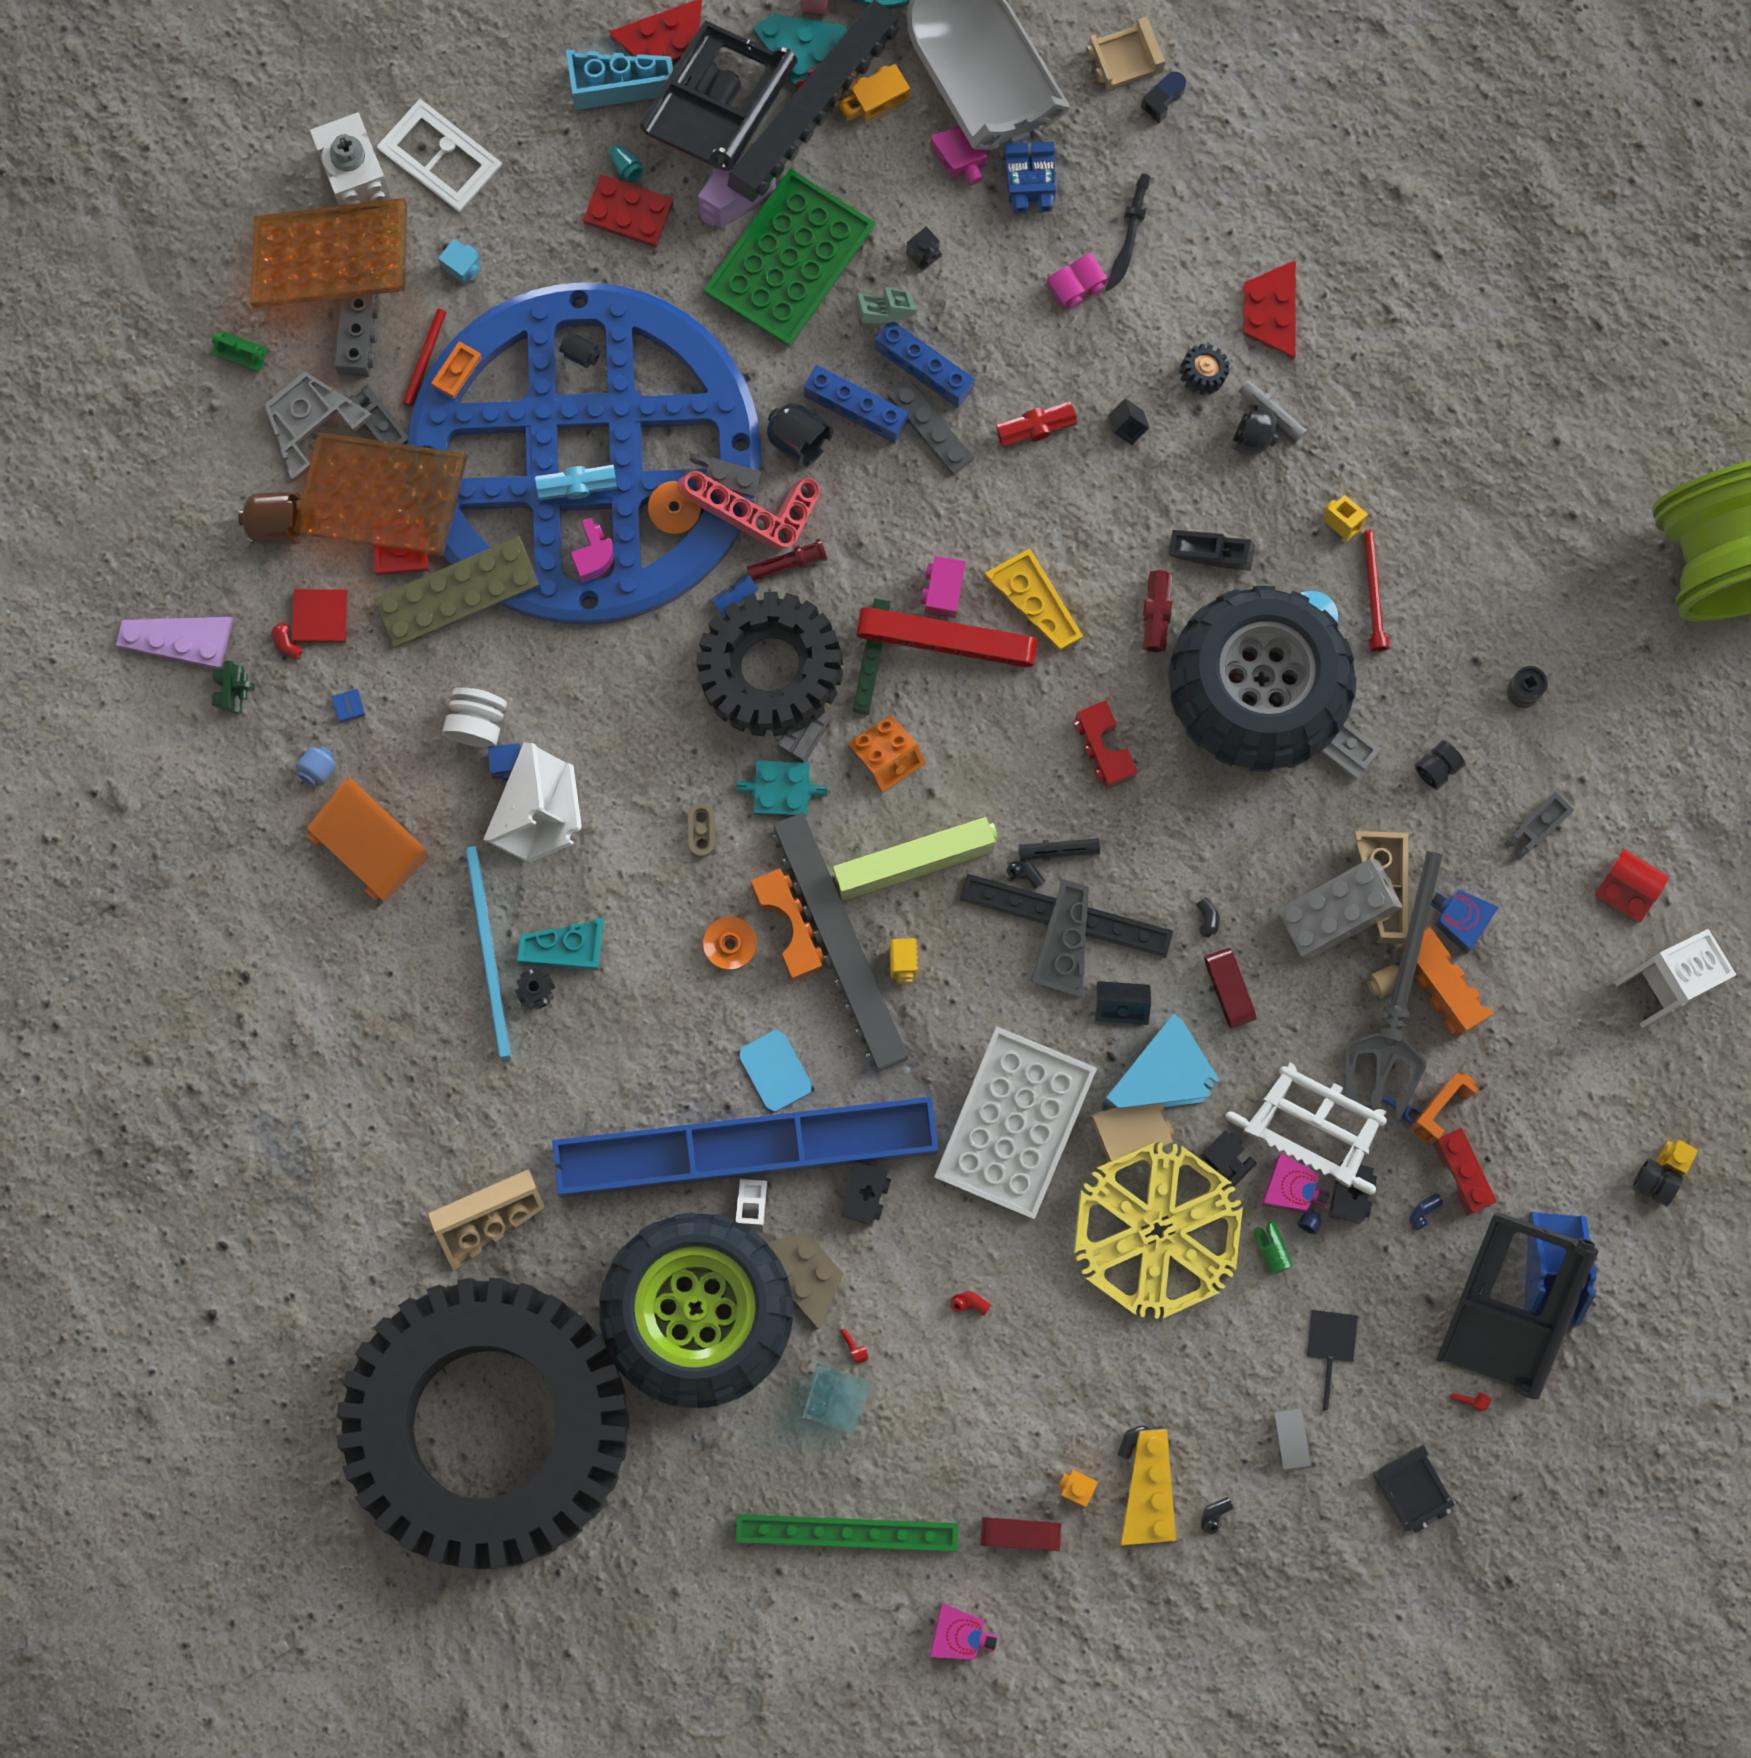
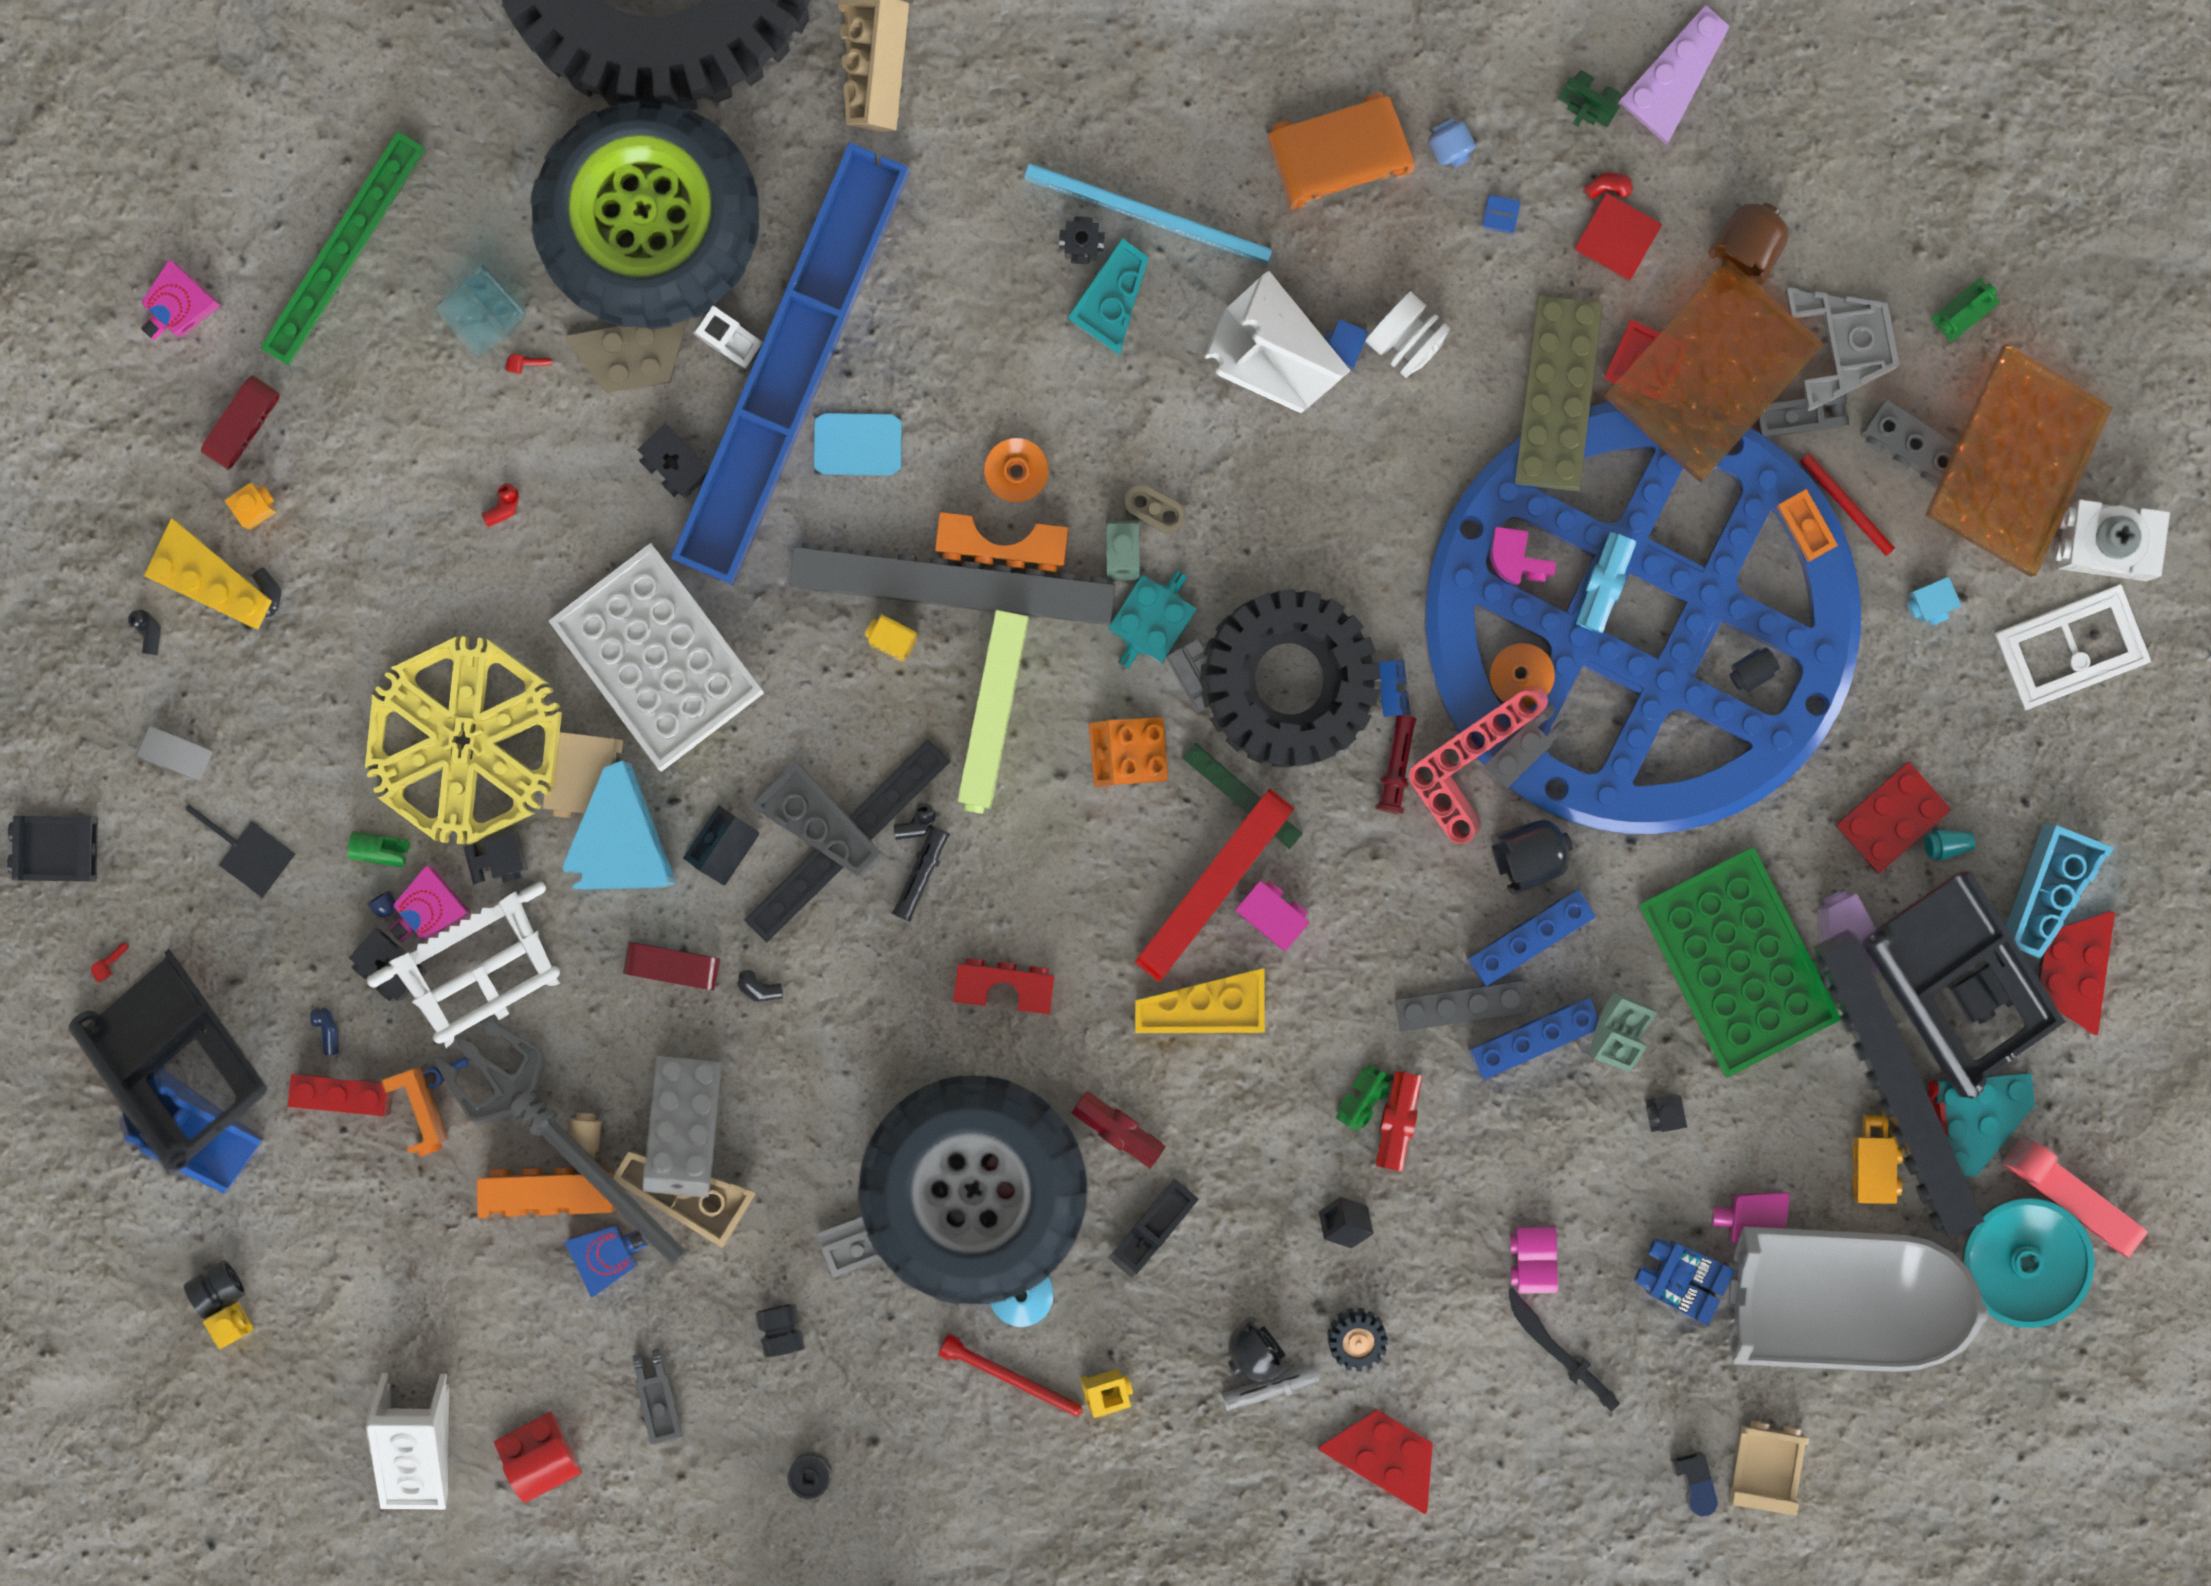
camera: 125 degrees right, 10 degrees up
(742, 835) = (1122, 549): none -> sand green torso
(1044, 456) = (1372, 1088): none -> green hinge

